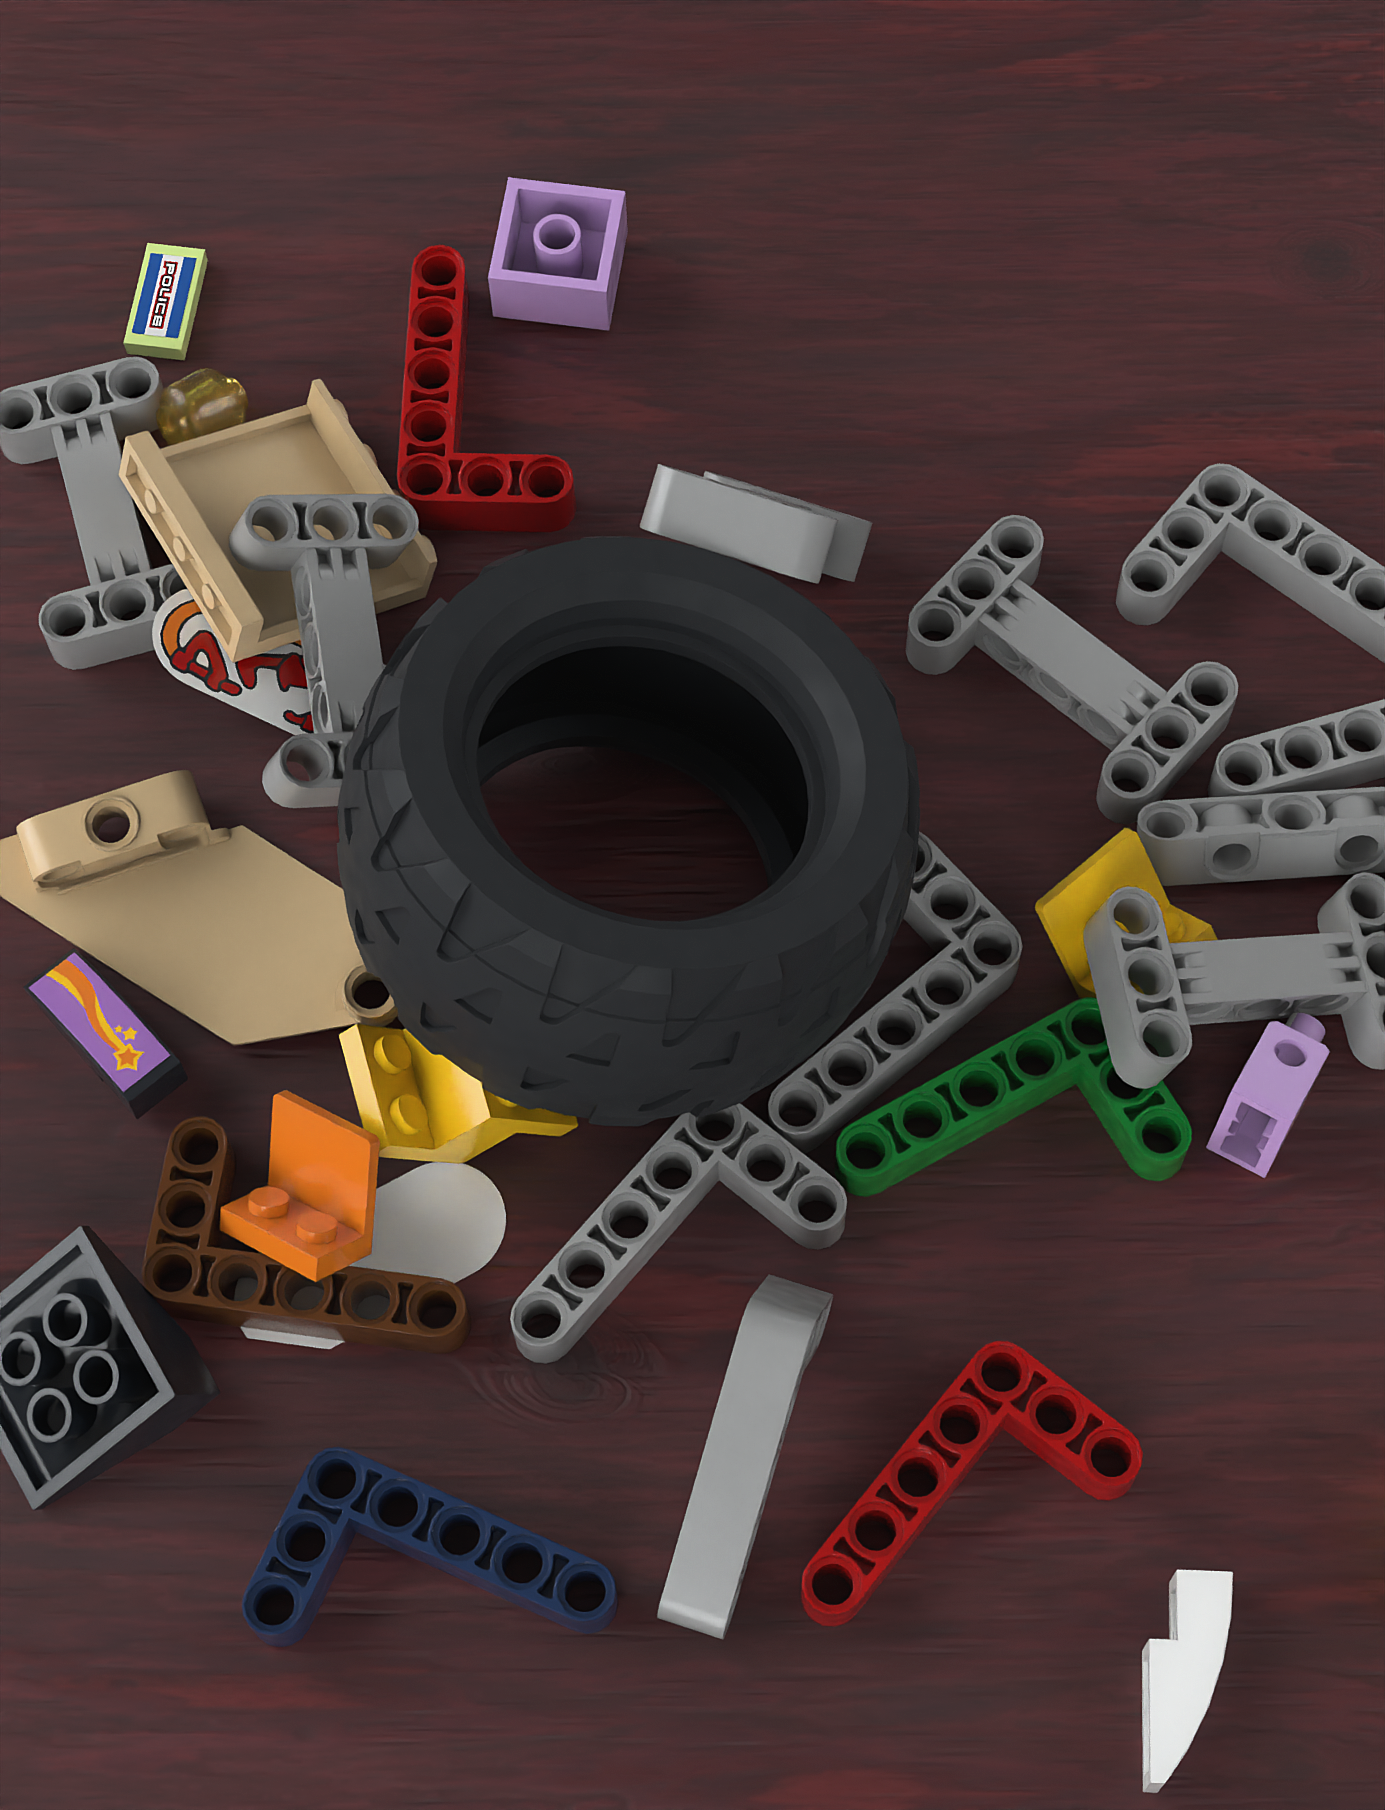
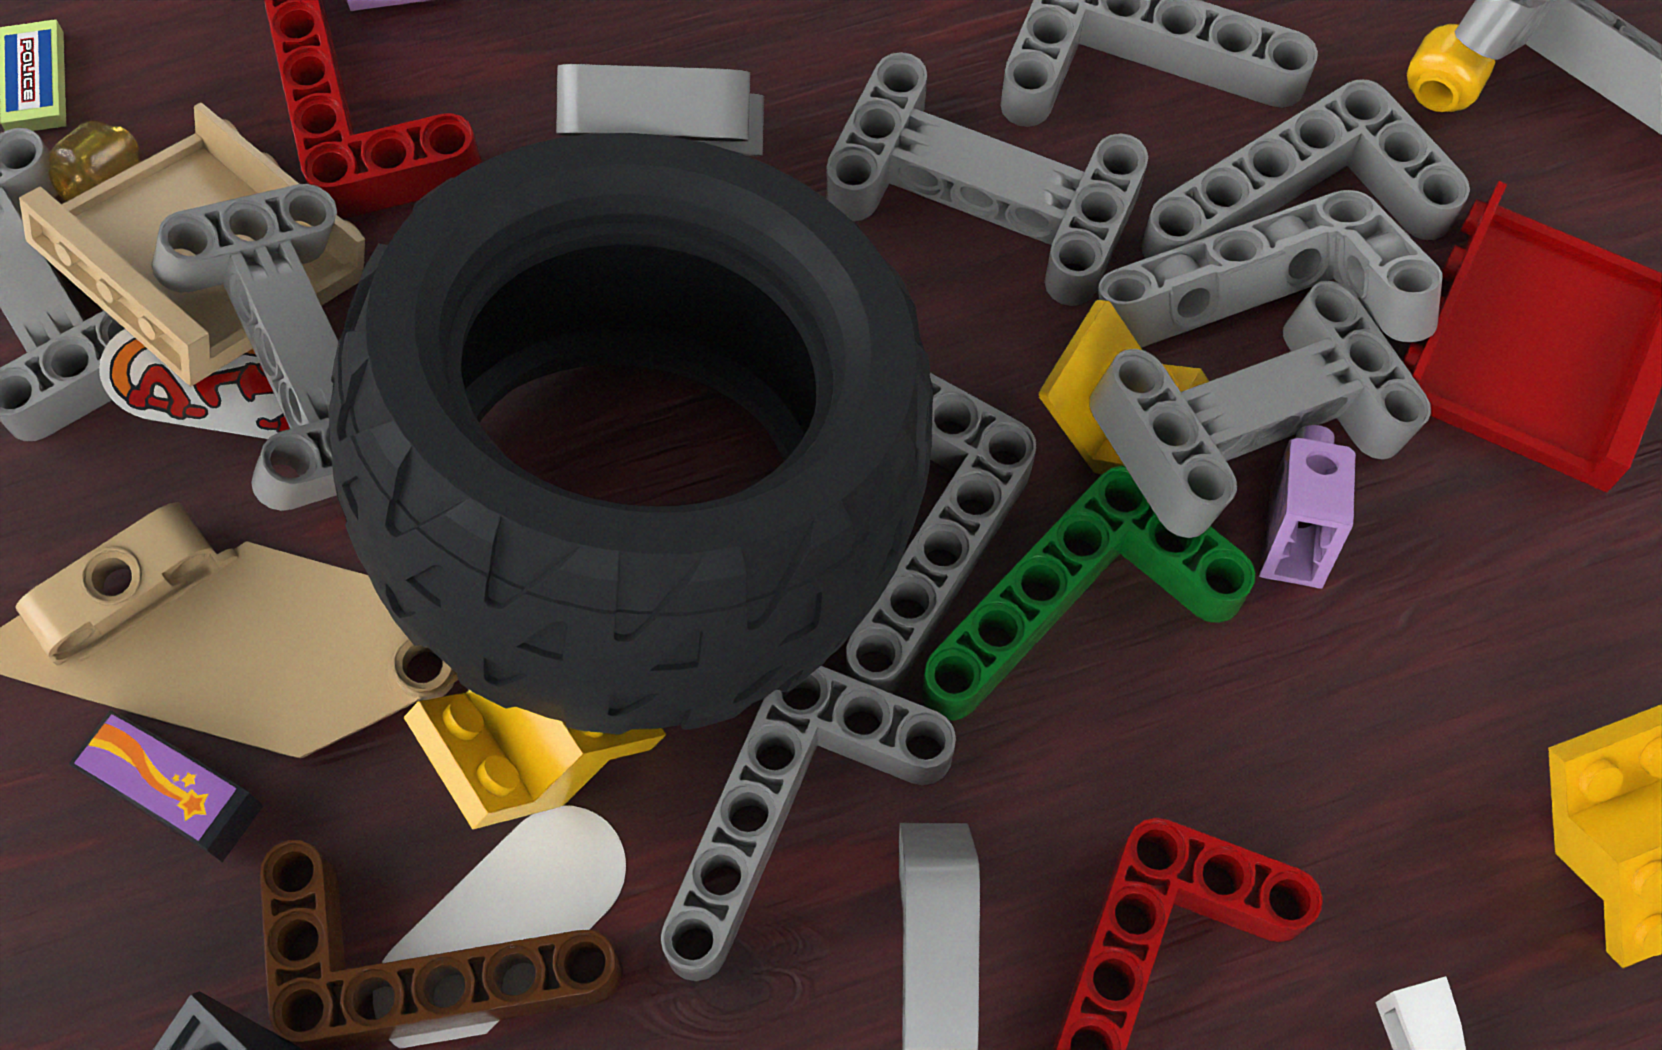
camera: 20 degrees left, 0 degrees up
(317, 1195) = (430, 882): orange bracket -> none

